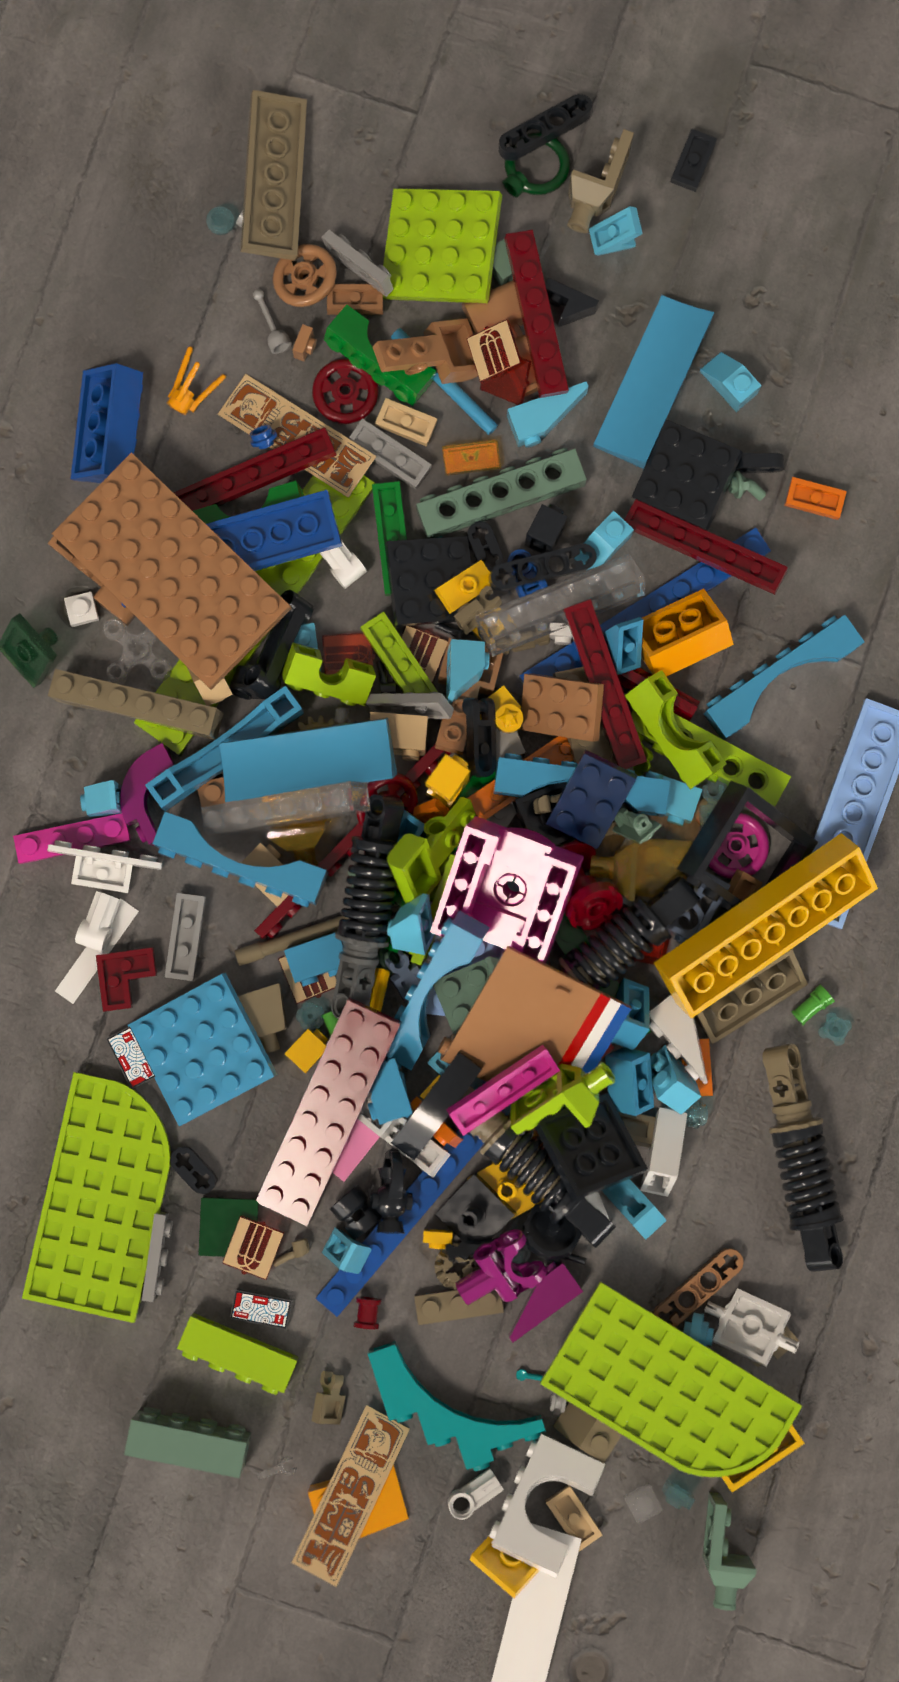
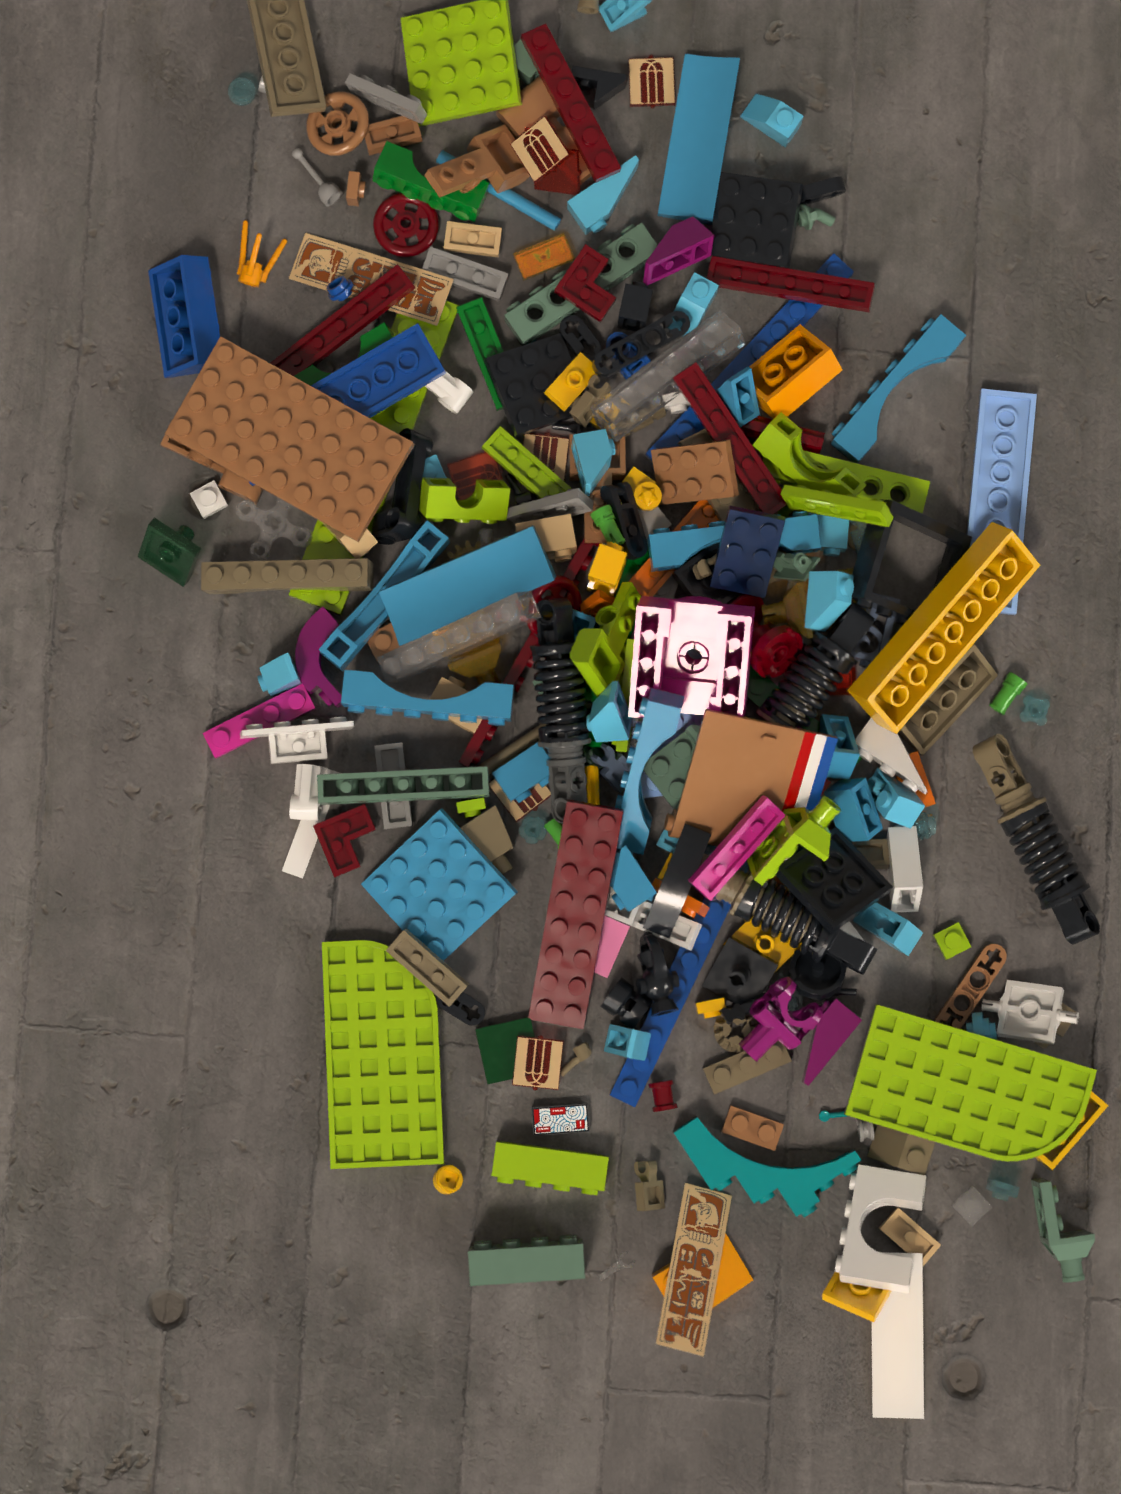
camera: 15 degrees left, 0 degrees up
(130, 1058) = (372, 914): tile -> none
(134, 1339) = (447, 1179): none -> yellow tile
(157, 1257) = (449, 1095): light grey plate -> none
(169, 1125) = (427, 967): none -> dark tan plate
(192, 940) = (403, 785): none -> sand green brick
(255, 978) = (471, 807): none -> lime plate
(307, 1049) = (539, 861): yellow brick -> none
(447, 1368) = (752, 1128): none -> medium nougat plate
(459, 731) = (605, 521): none -> bright green pin
(477, 1492) = (812, 1237): white piece -> none
(496, 495) = (579, 284): none -> dark red plate
(605, 483) = (680, 247): none -> magenta slope
(622, 314) = (651, 82): none -> piece
(657, 866) = (827, 598): none -> medium azure slope
(685, 774) = (836, 505): none -> lime plate
(693, 1235) = (951, 940): none -> lime plate
(743, 885) = (912, 595): medium nougat plate -> none
(757, 854) = (918, 564): dark pink plate -> none
(815, 498) = (883, 210): orange plate -> none

